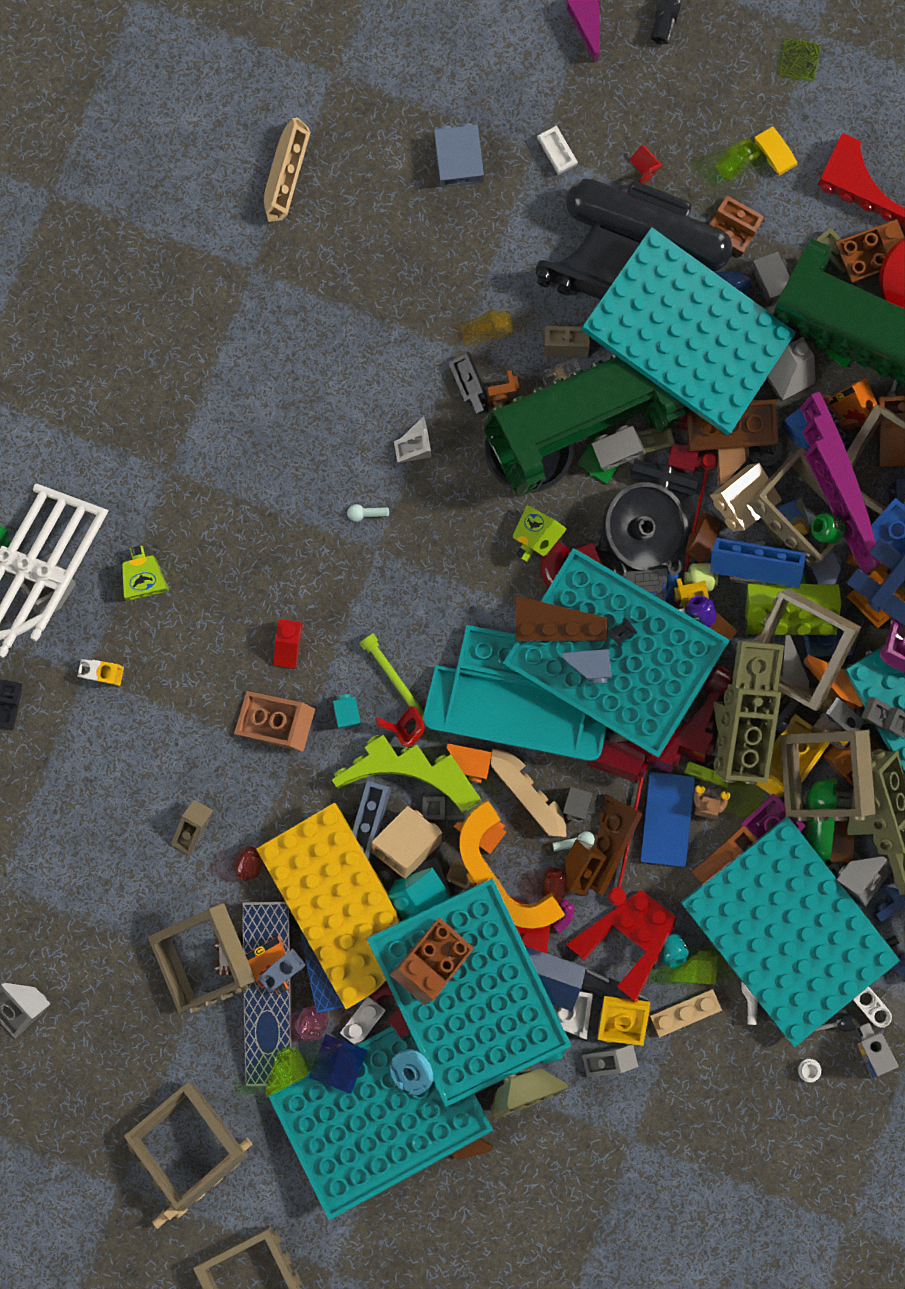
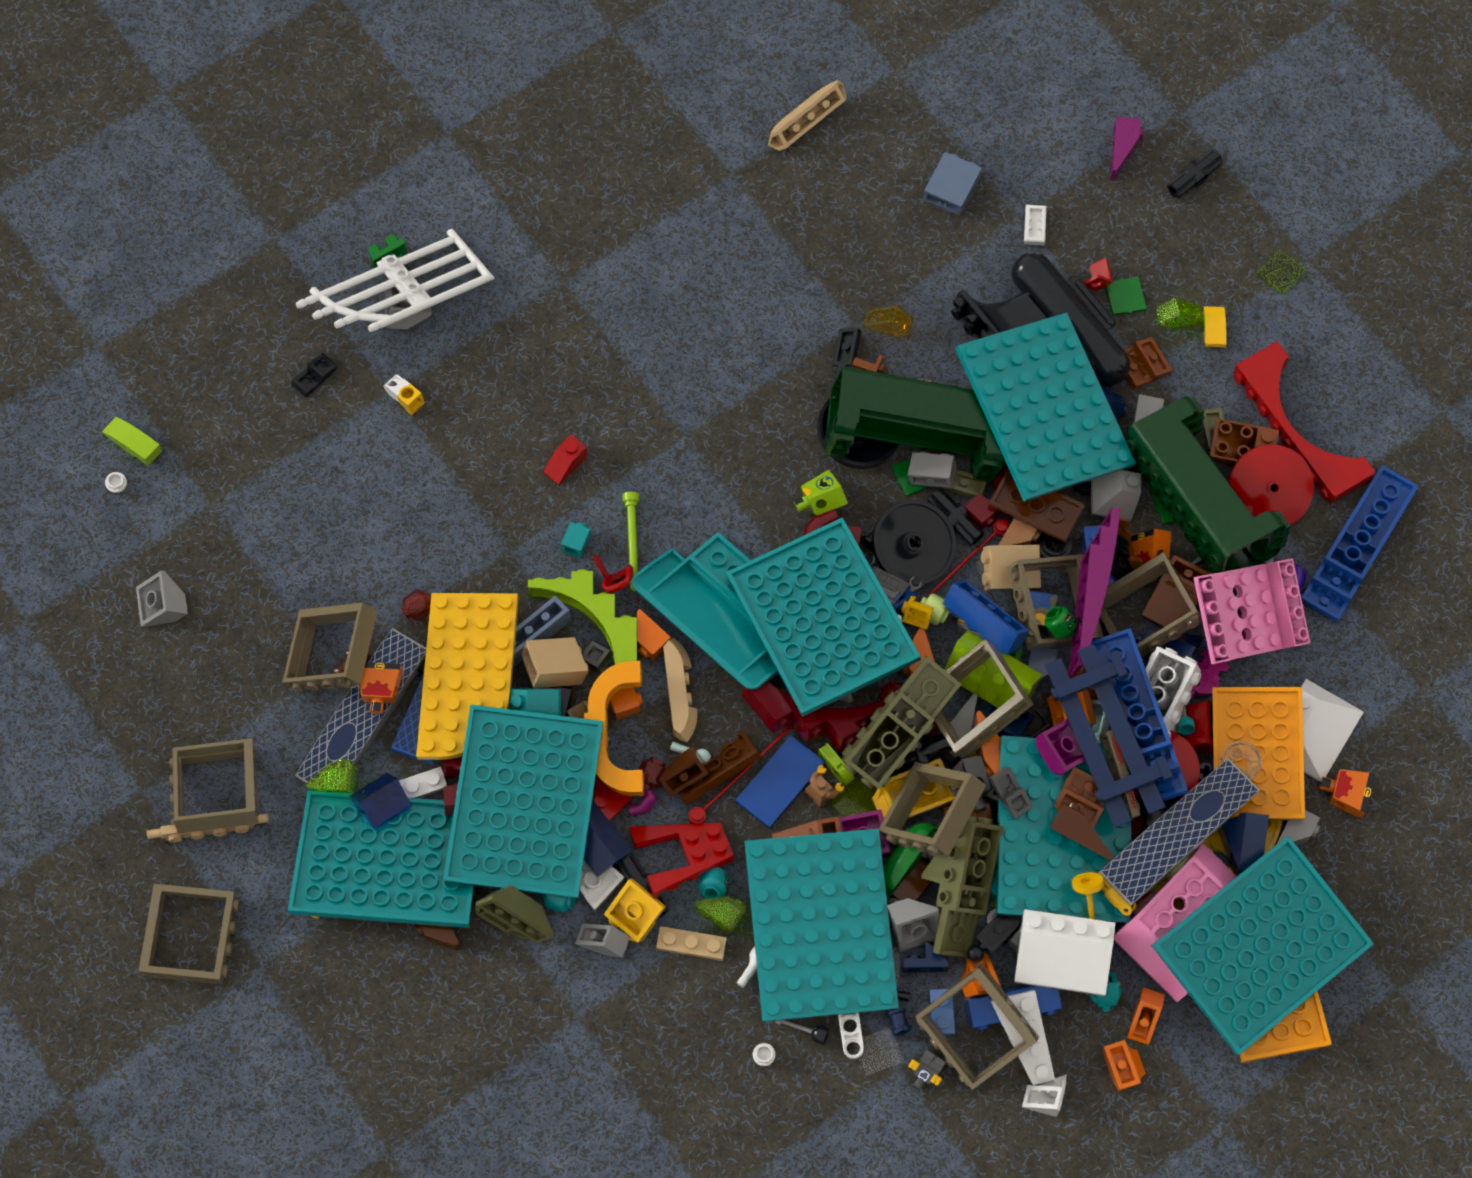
camera: 30 degrees right, 15 degrees down
(142, 576) = (486, 343): lime torso -> none
(191, 827) = (392, 550): dark tan slope -> none
(275, 720) = (515, 512): nougat slope -> none
(281, 970) = (386, 688): sand blue leg -> none
(311, 1024) = (380, 757): clear pink head -> none
(357, 512) = (689, 398): light aqua bar -> none
(414, 443) = (770, 374): white slope -> none
(418, 1064) = (444, 835): medium azure tile -> none
(432, 962) = (509, 752): dark orange slope -> none
(553, 623) = (784, 561): reddish brown wing -> none
(565, 342) = (943, 367): dark tan hinge -> none
(576, 804) = (713, 722): dark grey brick -> none
(591, 664) = (796, 609): sand blue slope -> none
(626, 634) = (837, 599): black bush -> none
(679, 169) = (1126, 296): none -> green piece
(701, 609) = (915, 626): dark purple head -> none
(702, 541) = (944, 581): reddish brown slope -> none
(879, 1061) = (828, 1072): light grey torso -> none

